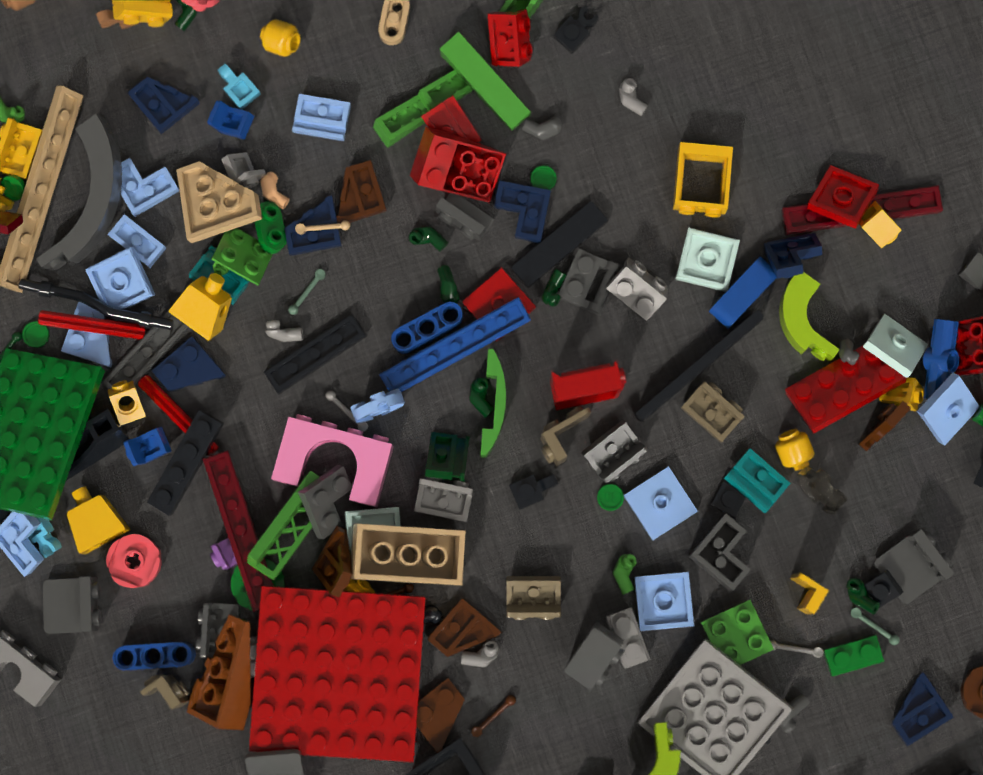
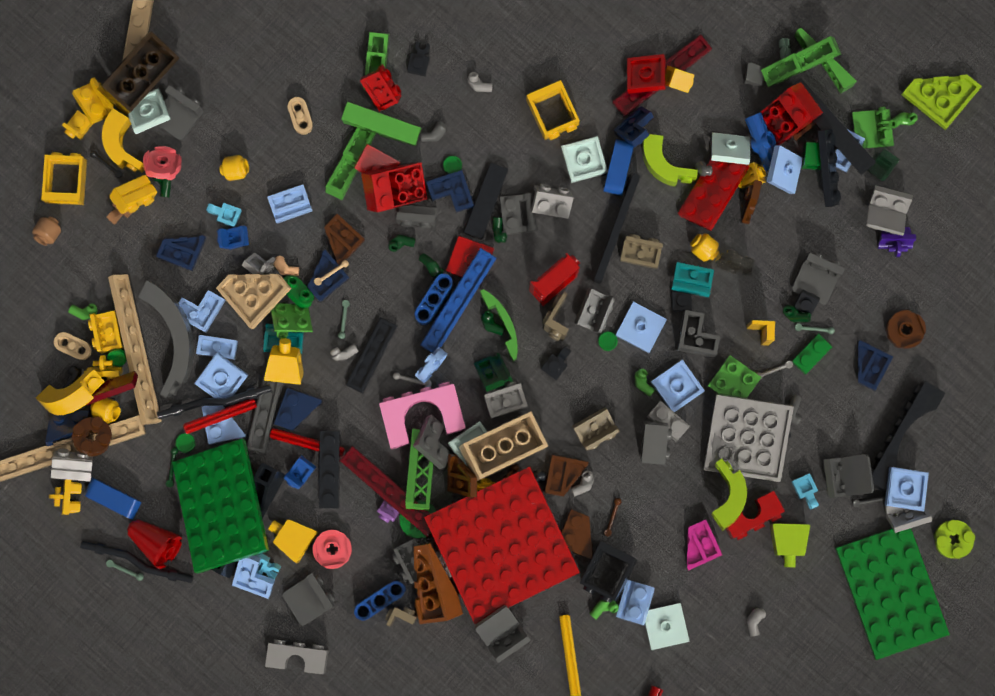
camera: 35 degrees left, 0 degrees up
(126, 413) = (277, 455): yellow brick -> none

